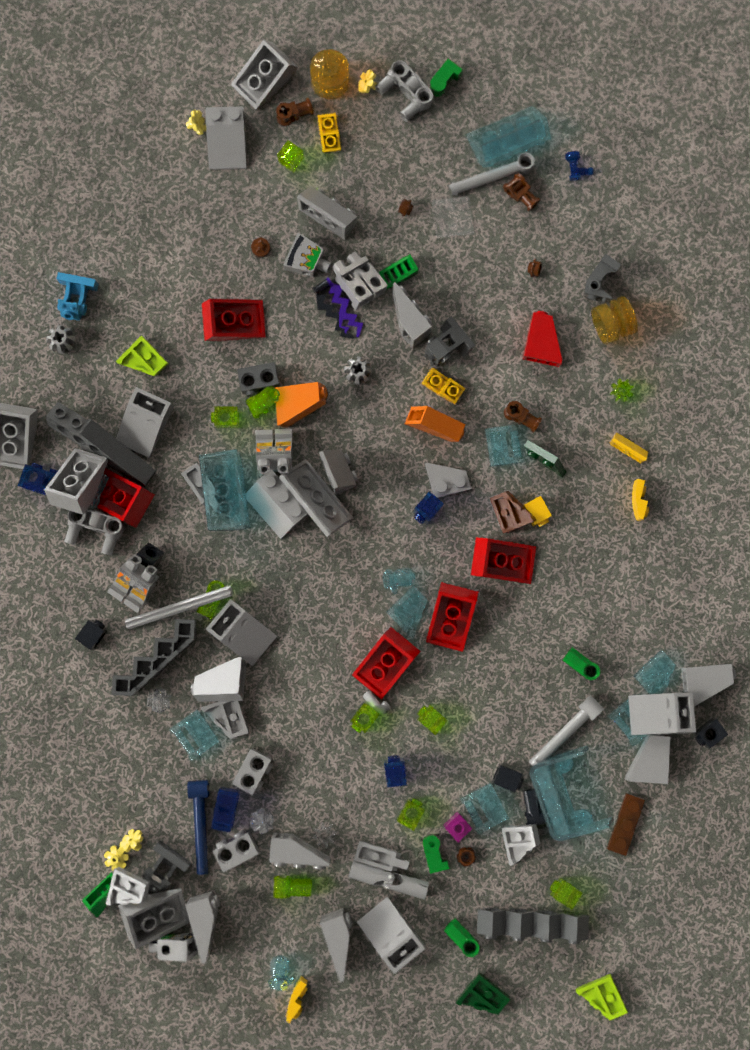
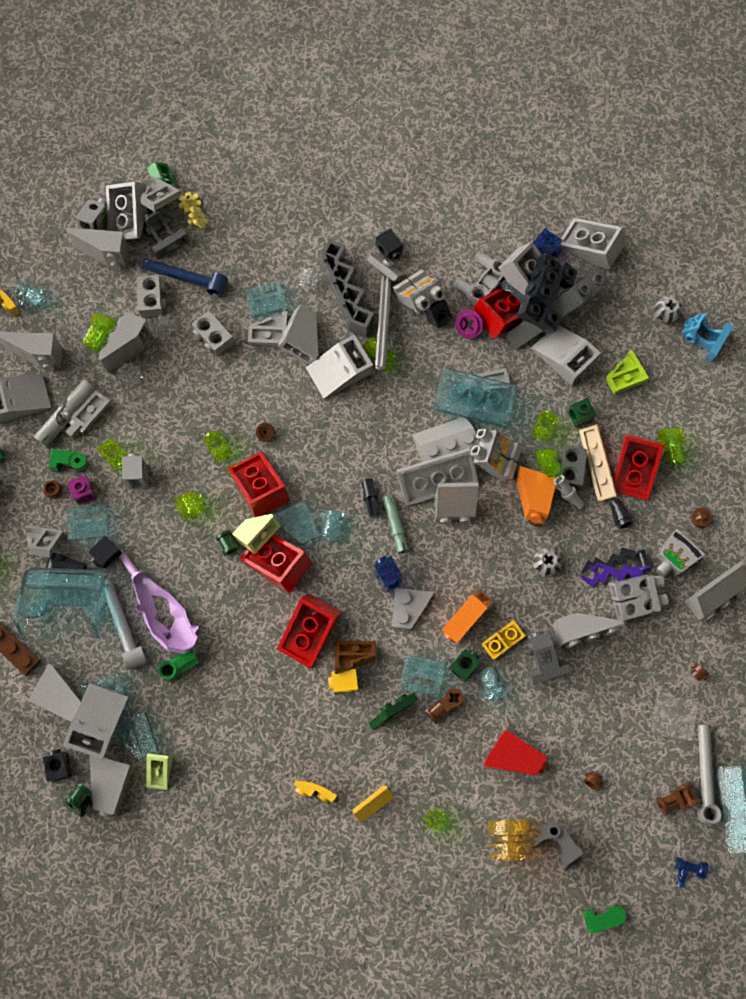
camera: 115 degrees right, 10 degrees down
(93, 461) = (542, 292): none -> black bracket
(116, 629) = (385, 266): none -> light grey plate
(154, 520) = (461, 322): none -> magenta gear
(197, 295) = (672, 439): none -> clear neon green piece
(200, 387) = (581, 412): none -> dark green brick
(225, 809) = (189, 298): clear blue brick -> none
(243, 356) = (598, 463): none -> tan tile
(285, 372) = (568, 493): none -> light grey pin
(286, 320) = (621, 515): none -> black cone
(332, 678) = (265, 432): none -> reddish brown tile
(358, 553) = (370, 497): none -> black axle
(376, 519) = (398, 532): none -> sand green pin
(381, 708) = (225, 459): light grey arm -> none
(395, 771) = (156, 451): clear blue brick -> none
(400, 278) = (626, 640): green slope -> none
(422, 782) = (135, 471): none -> light grey brick
(434, 645) = (256, 532): none -> yellowish green slope
(453, 668) = (227, 542): none -> dark green bush
(485, 383) = (491, 682): none -> clear light blue animal
(487, 407) = (463, 673): none -> dark green brick
(556, 671) = (182, 633): none -> lavender piece
(644, 222) = (604, 920): none -> green leg
(677, 642) = (158, 771): none -> yellowish green slope
(731, 700) = (78, 800): none -> dark green piece

